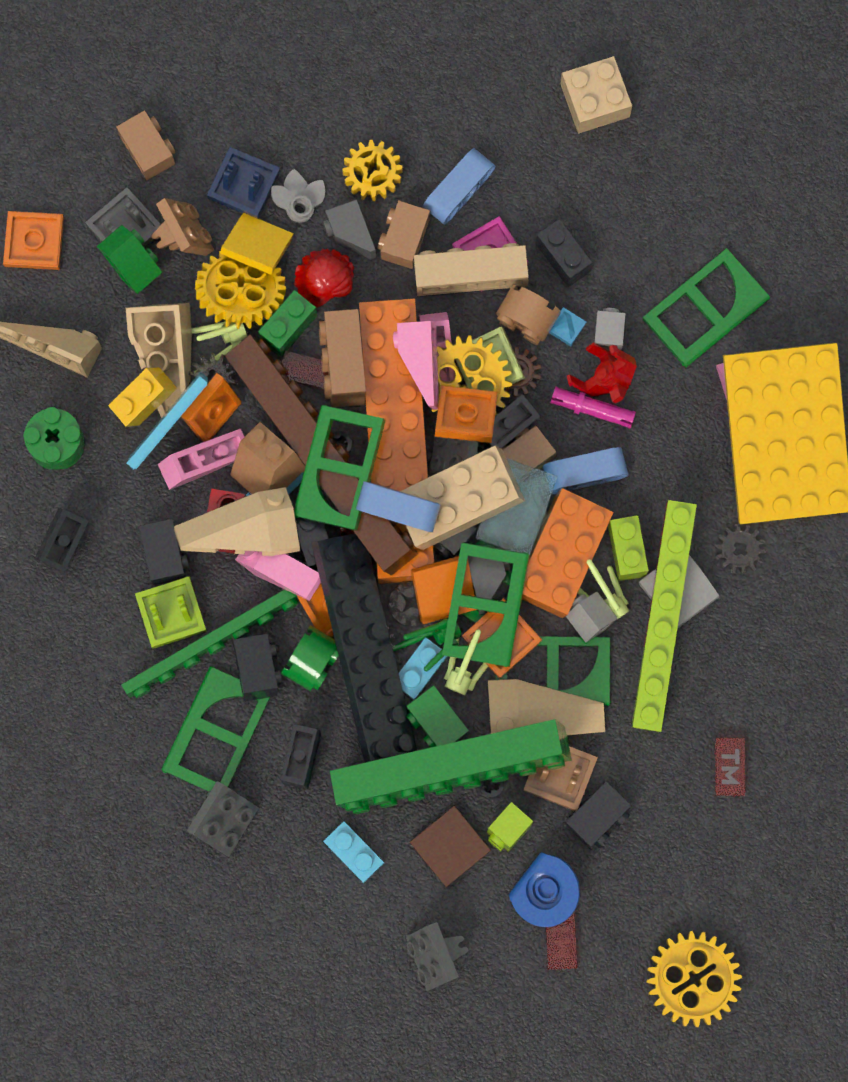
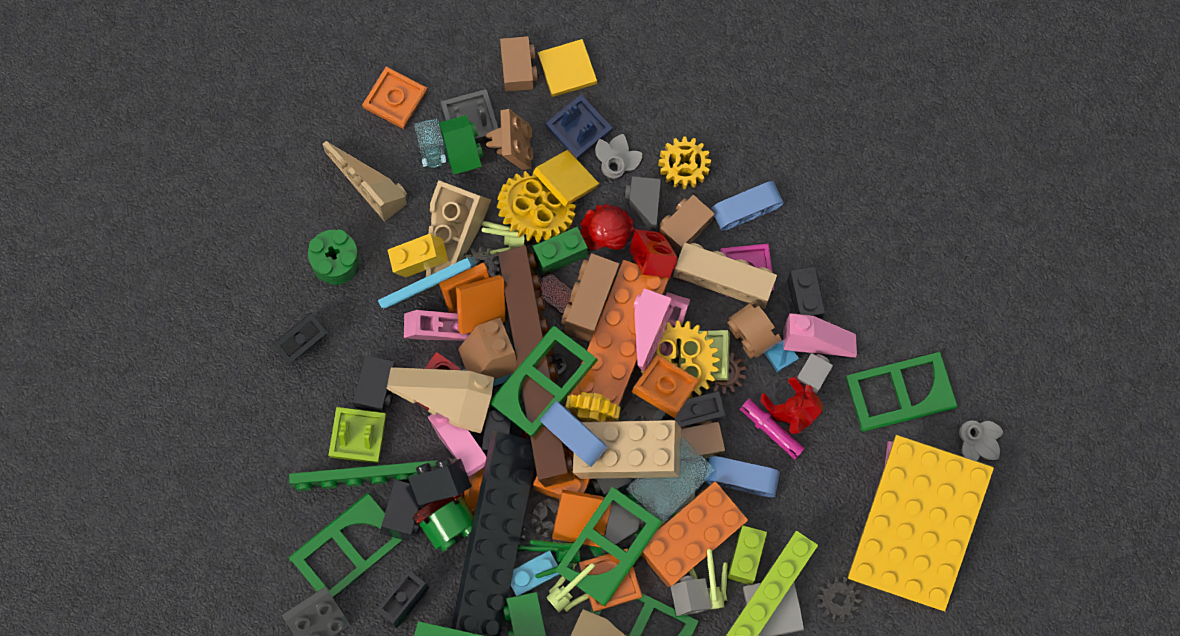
camera: 20 degrees right, 5 degrees down
(97, 272) = (430, 143): none -> clear light blue brick
(200, 125) = (567, 68): none -> yellow tile
(232, 416) = (480, 303): none -> orange tile
(281, 619) = (439, 481): none -> black brick
(290, 645) = (431, 508): none -> clear red tile
(386, 282) = (653, 253): none -> red brick
(403, 471) = (592, 407): none -> yellow gear
(595, 290) = (815, 335): none -> bright pink slope
(596, 94) = (890, 183): tan brick -> none
(813, 320) = (984, 441): none -> light grey plate

